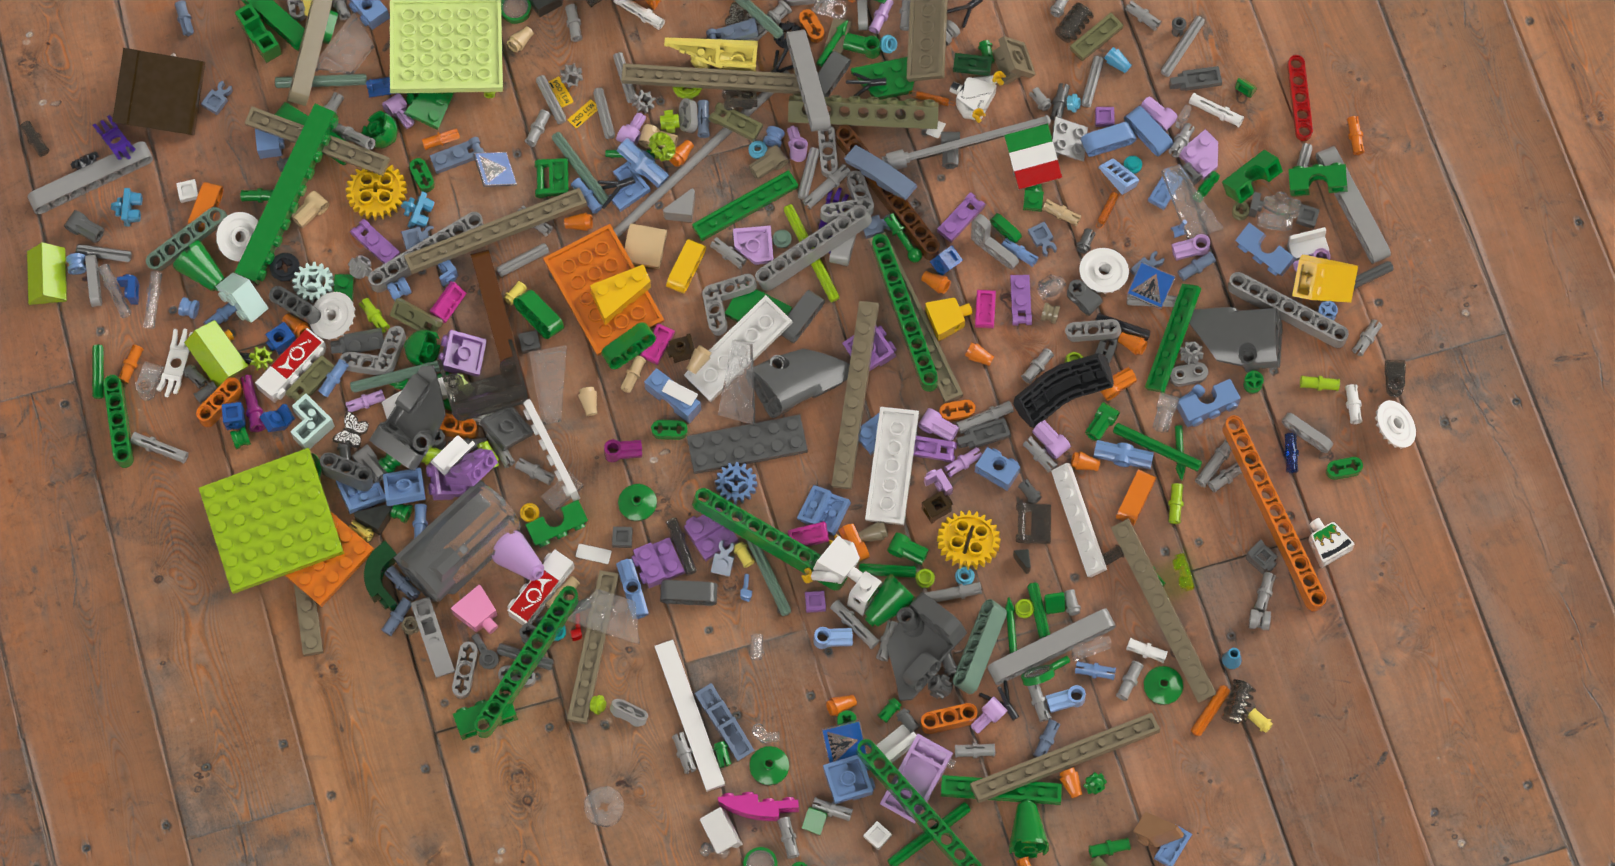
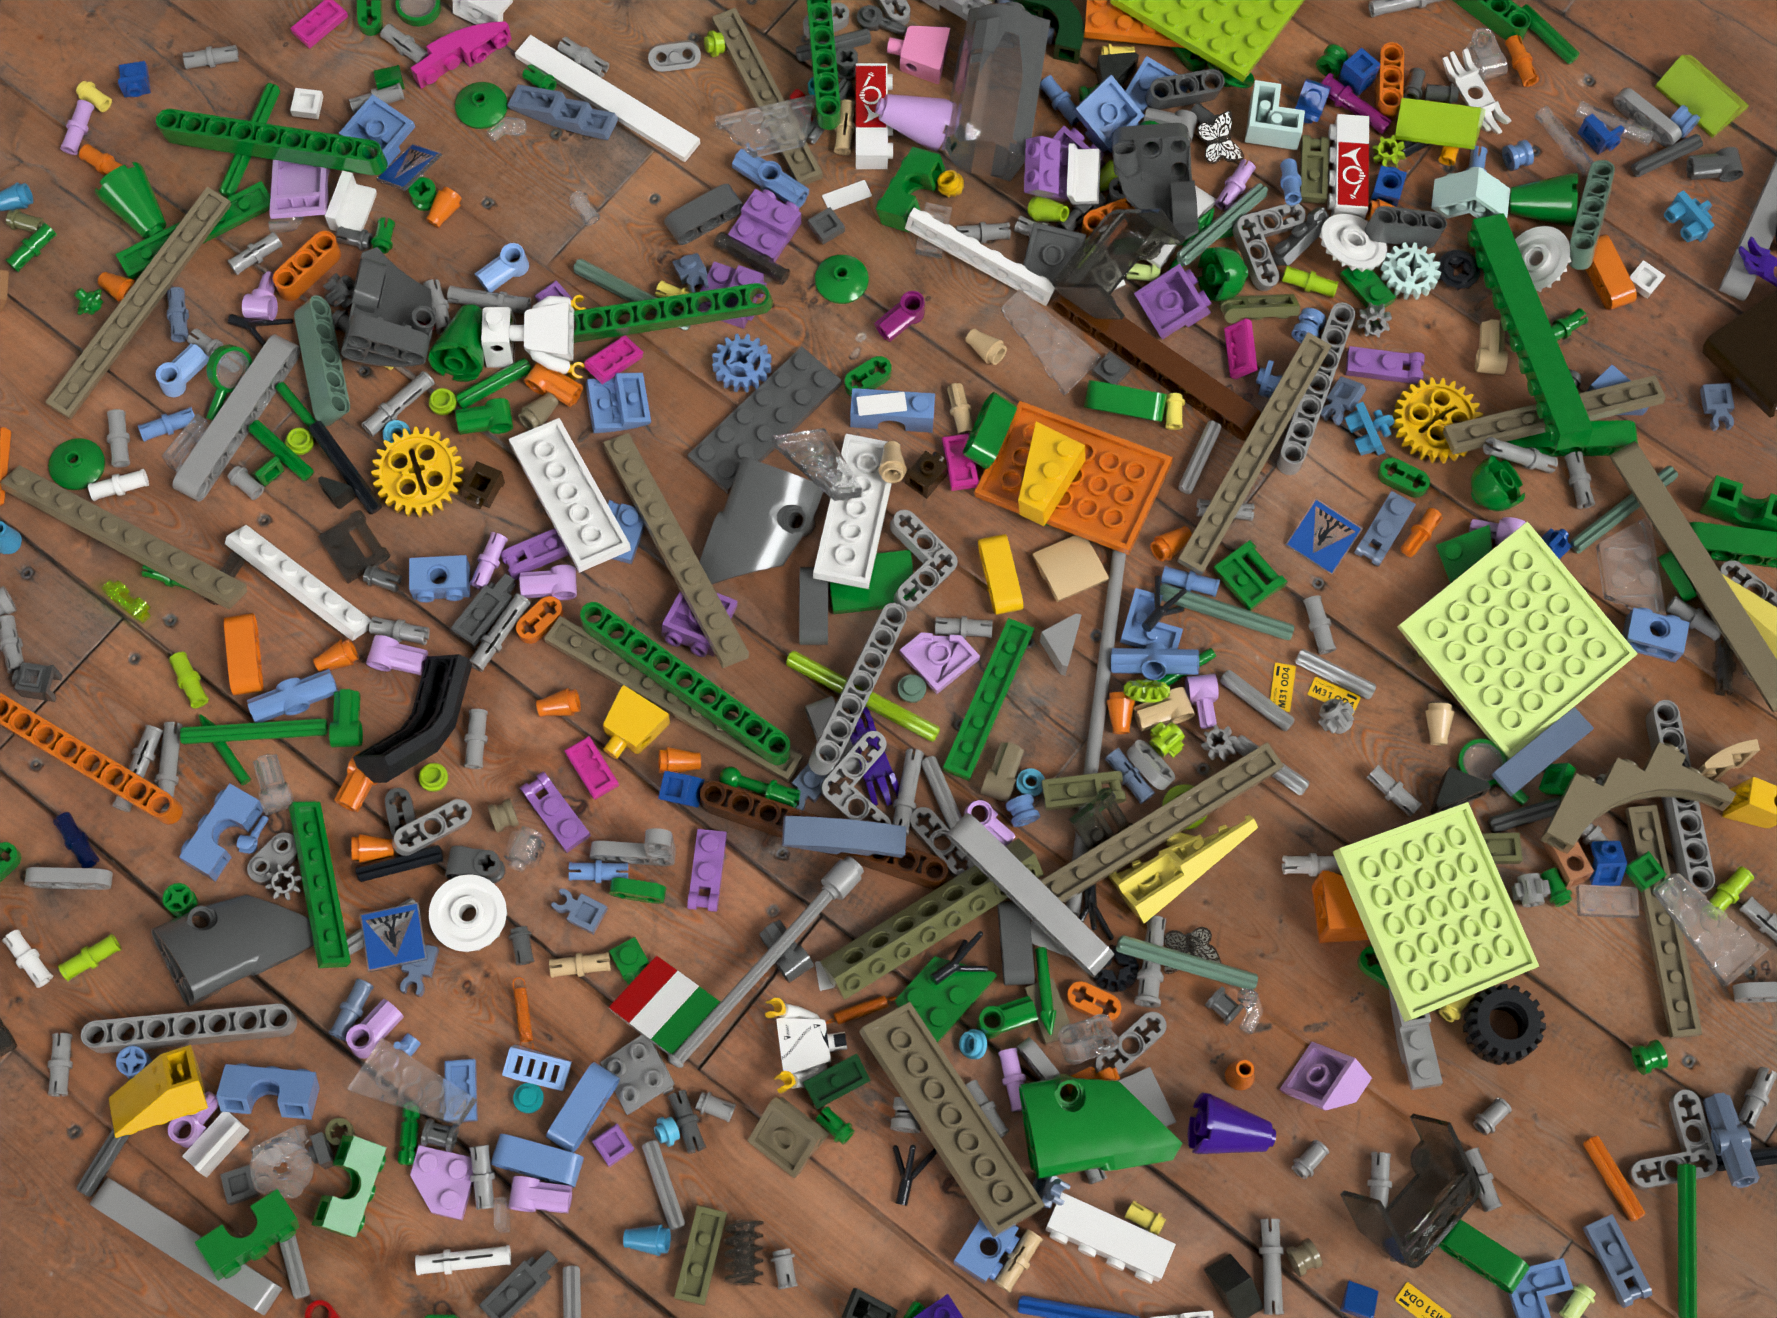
camera: 140 degrees right, 0 degrees up
(738, 31) = (1182, 913): sand blue plate -> none
(745, 593) = (639, 255): medium blue hand -> none
(942, 483) = (498, 519): lavender bracket -> none
(1008, 571) = (345, 467): none -> black axle

